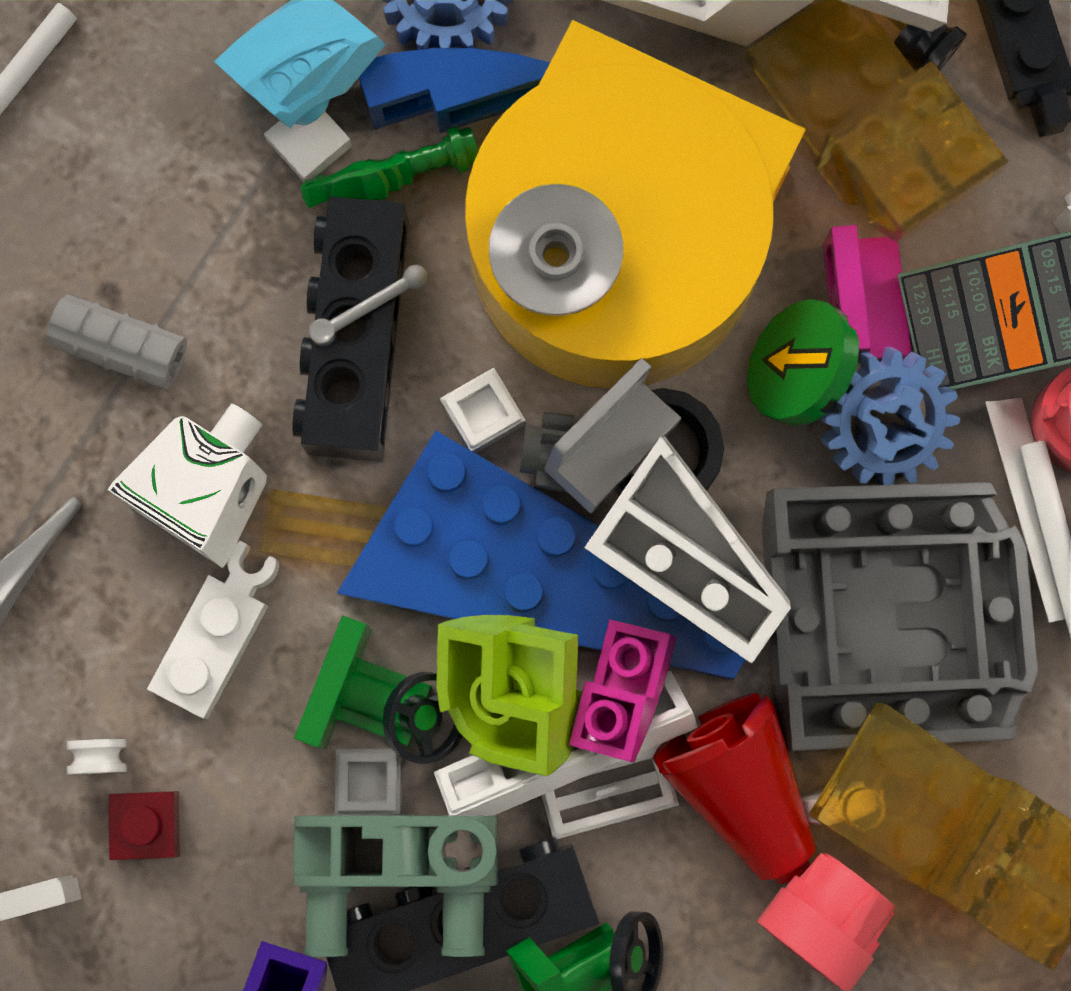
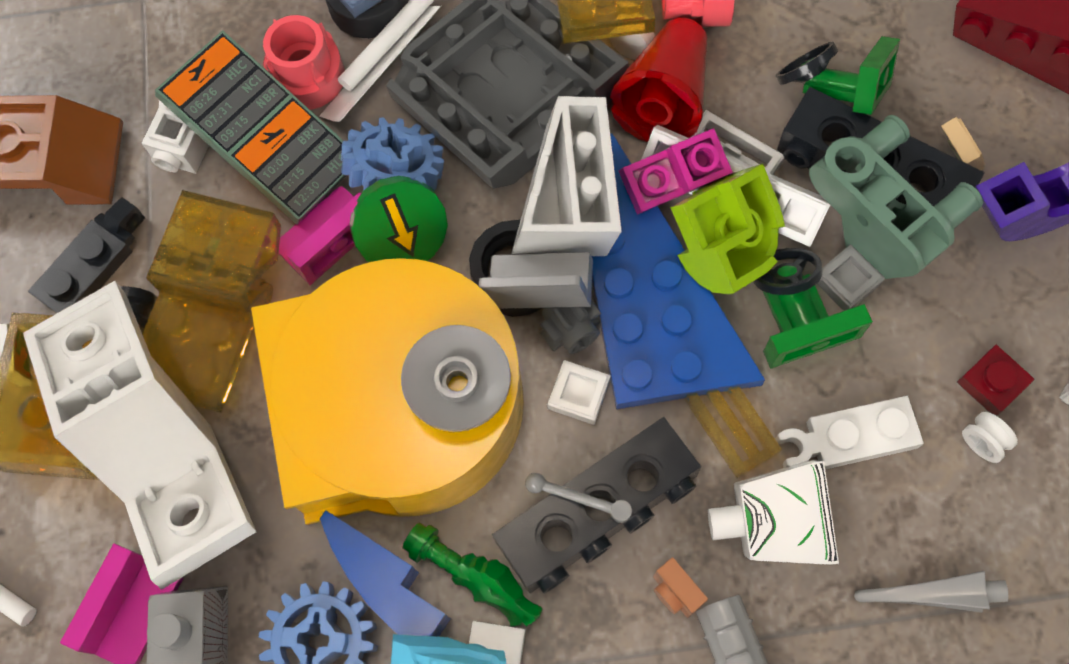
camera: 125 degrees left, 10 degrees down
(217, 338) = (677, 589): none -> nougat plate

